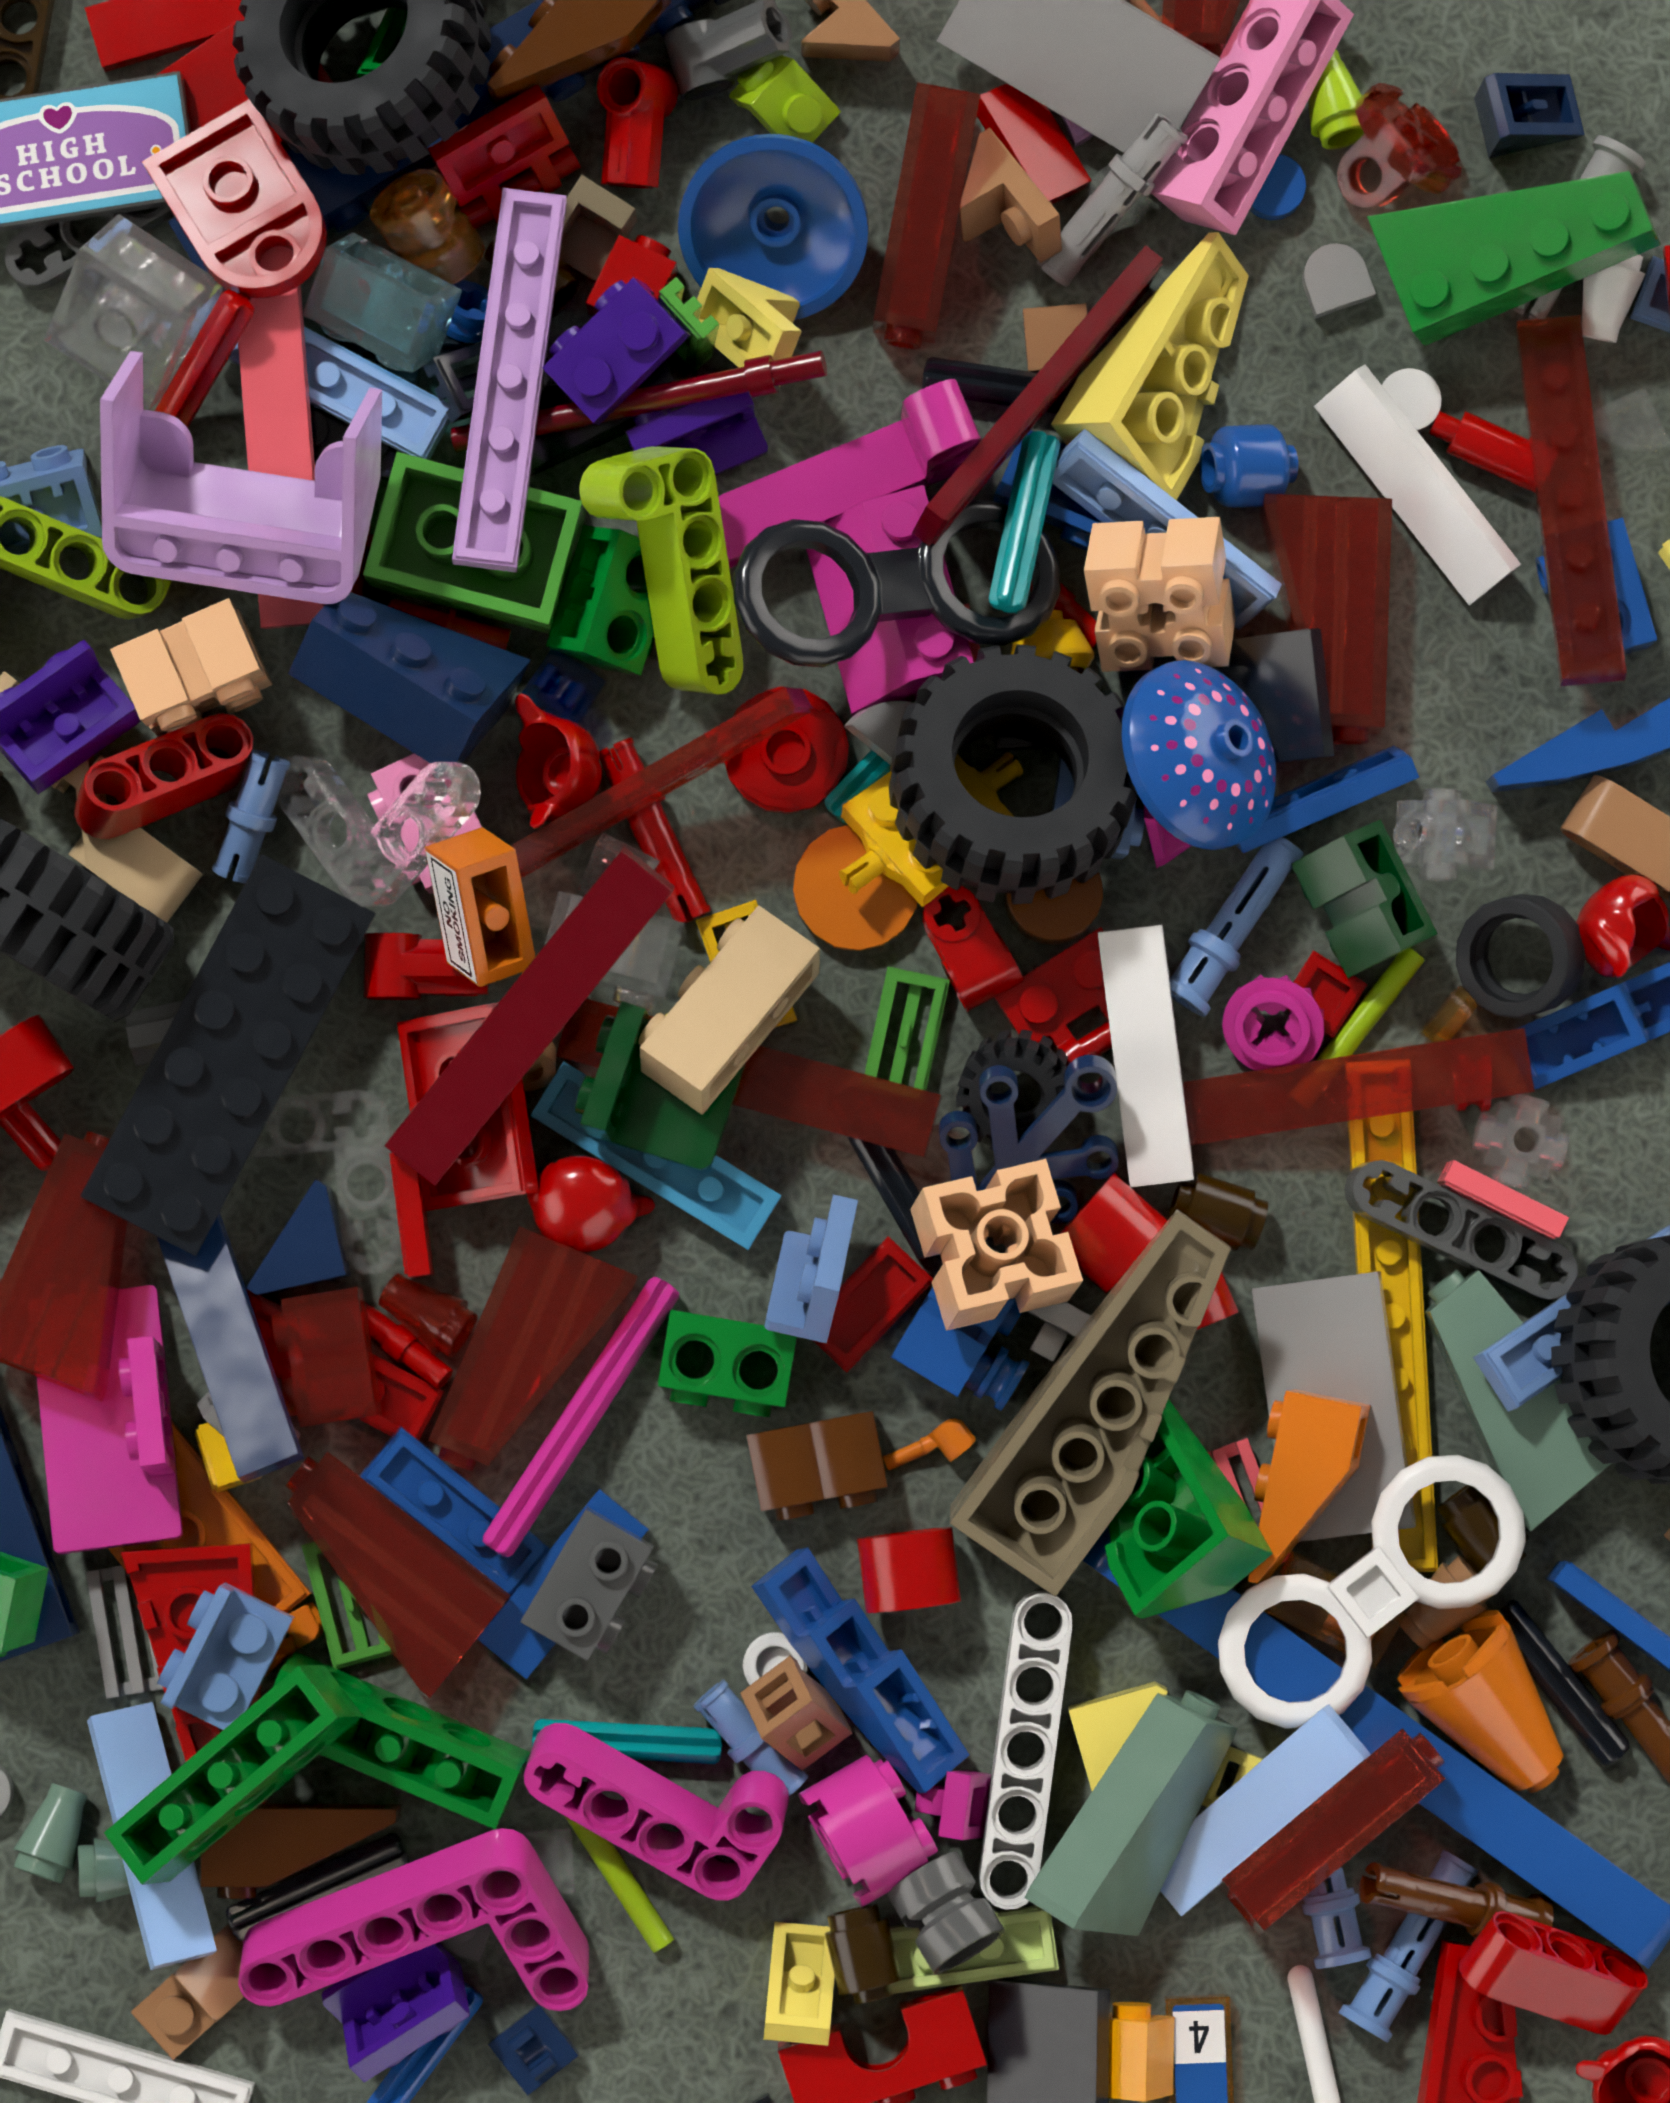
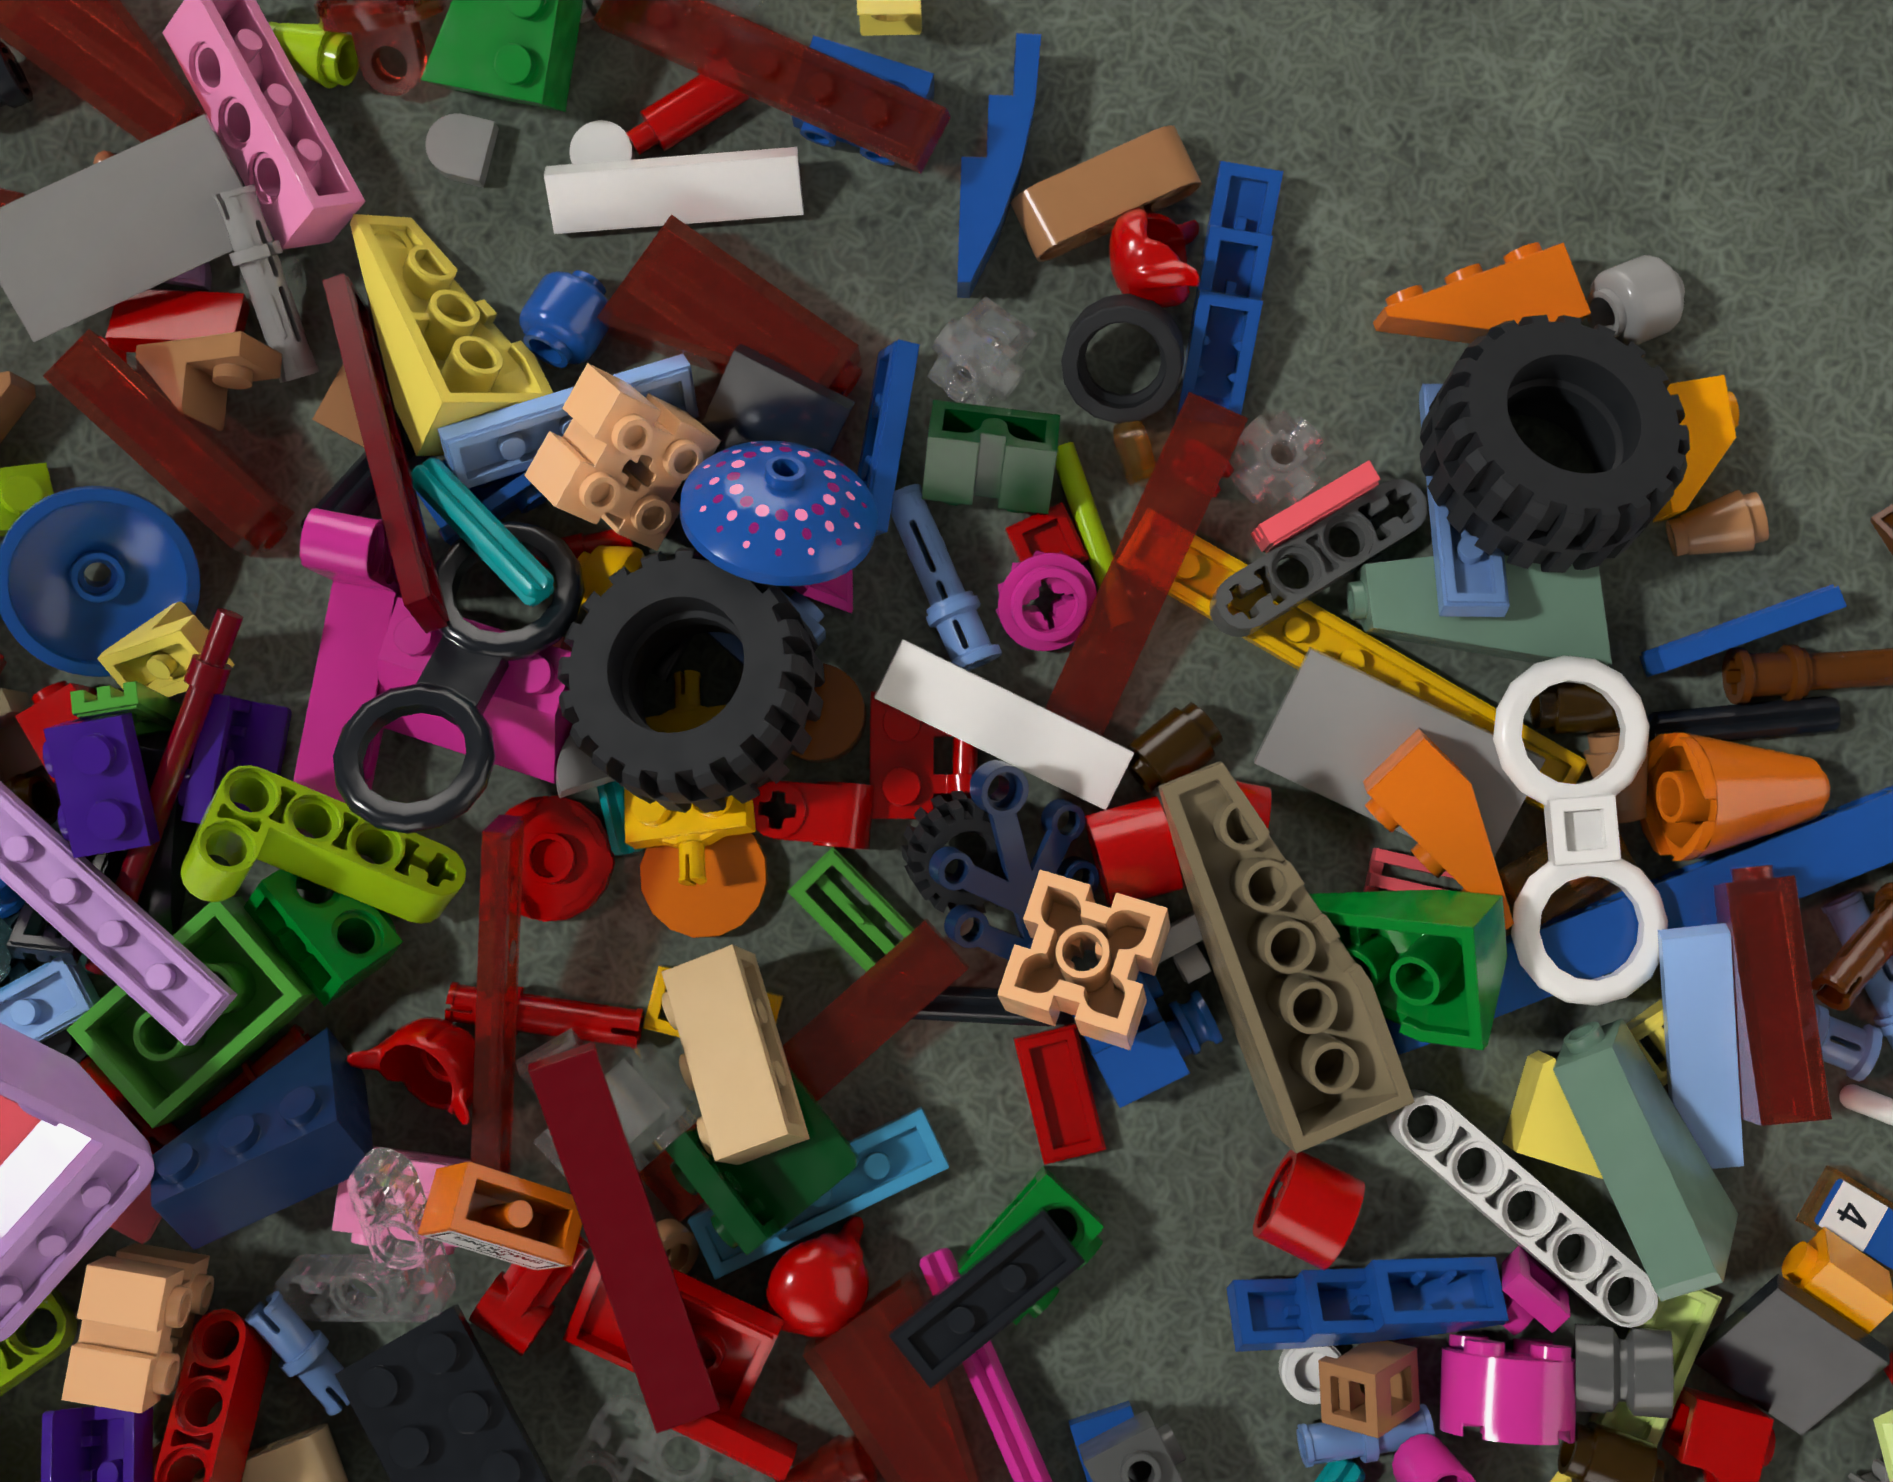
camera: 55 degrees left, 0 degrees up
(564, 687) = (374, 1011): clear blue tile -> none
(666, 1345) = (986, 1297): none -> black tile
(811, 1274) = (1007, 1131): medium blue bracket -> none
(818, 1463) = (1167, 1225): reddish brown brick -> none
(950, 1437) = (1216, 1096): orange hand -> none
(1281, 190) = (358, 145): blue tile -> none

